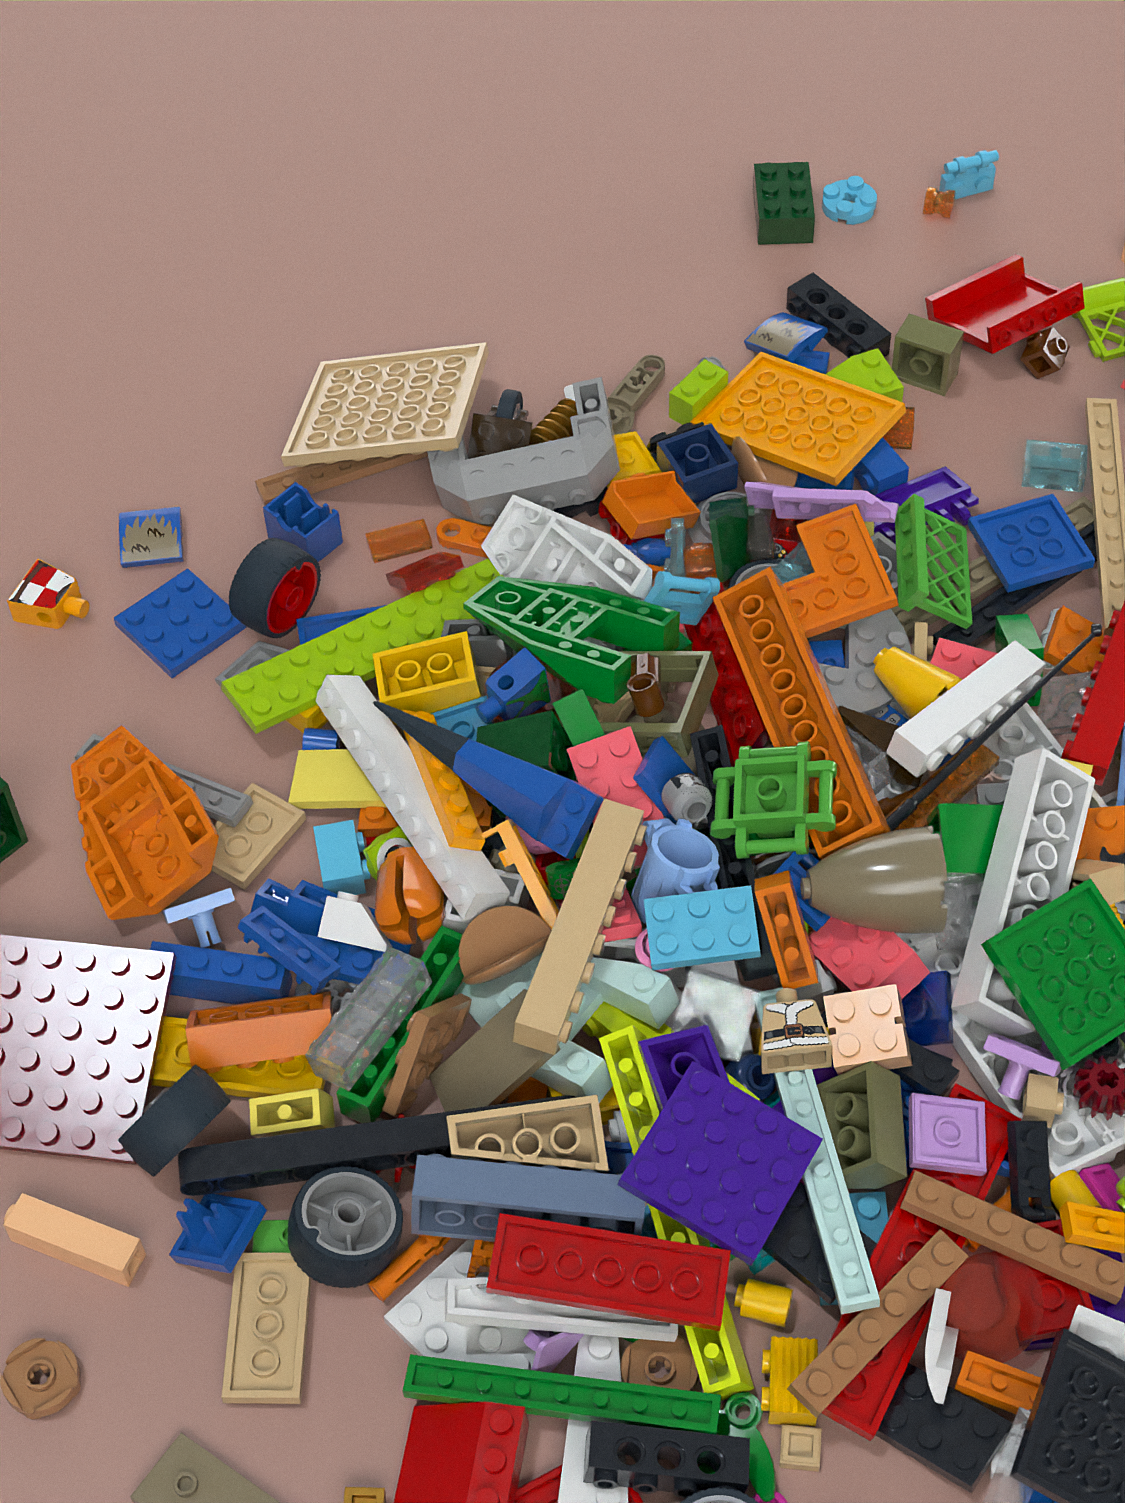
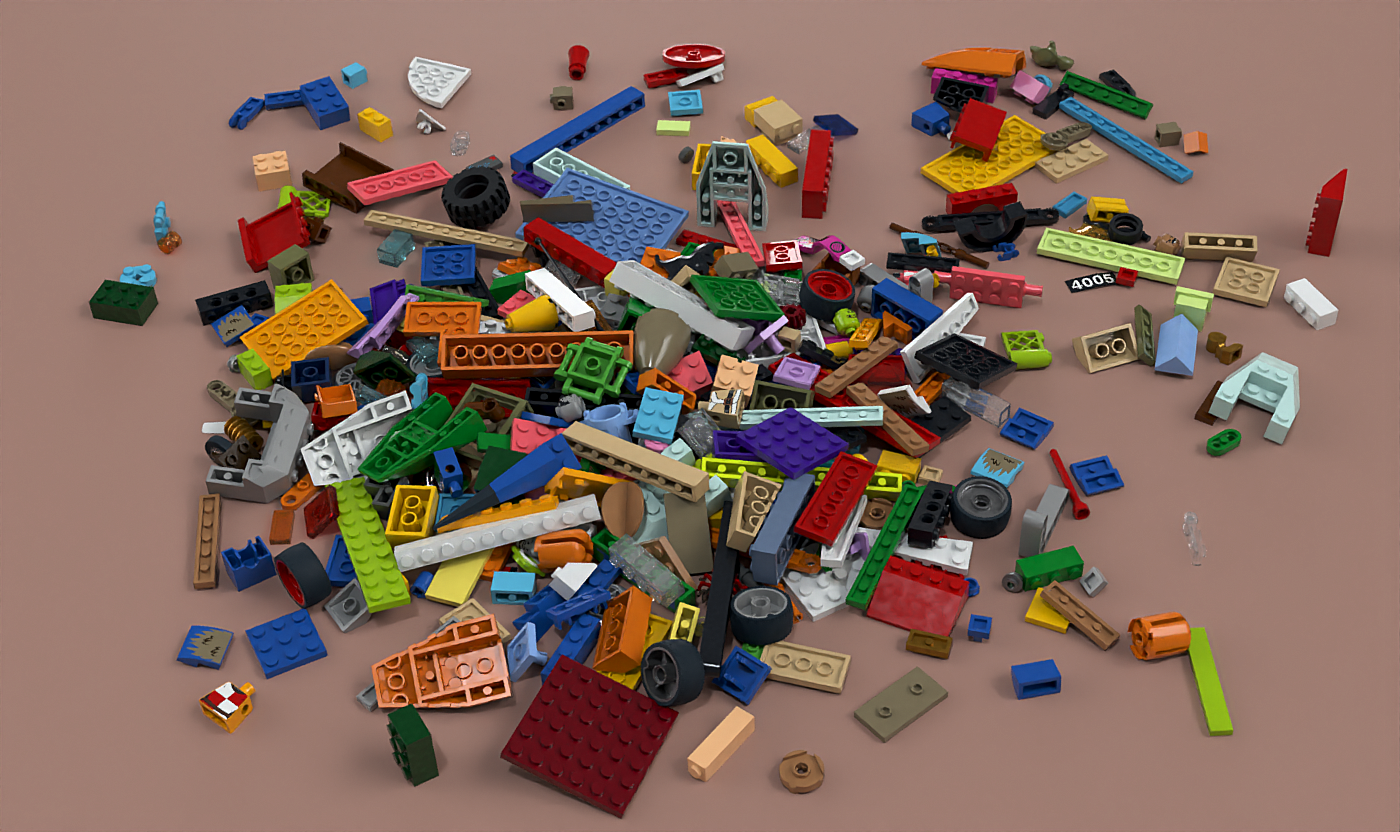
camera: 75 degrees left, 10 degrees down
(387, 405) = (183, 498): tan plate -> none
(937, 1018) = (711, 351): none -> dark green plate

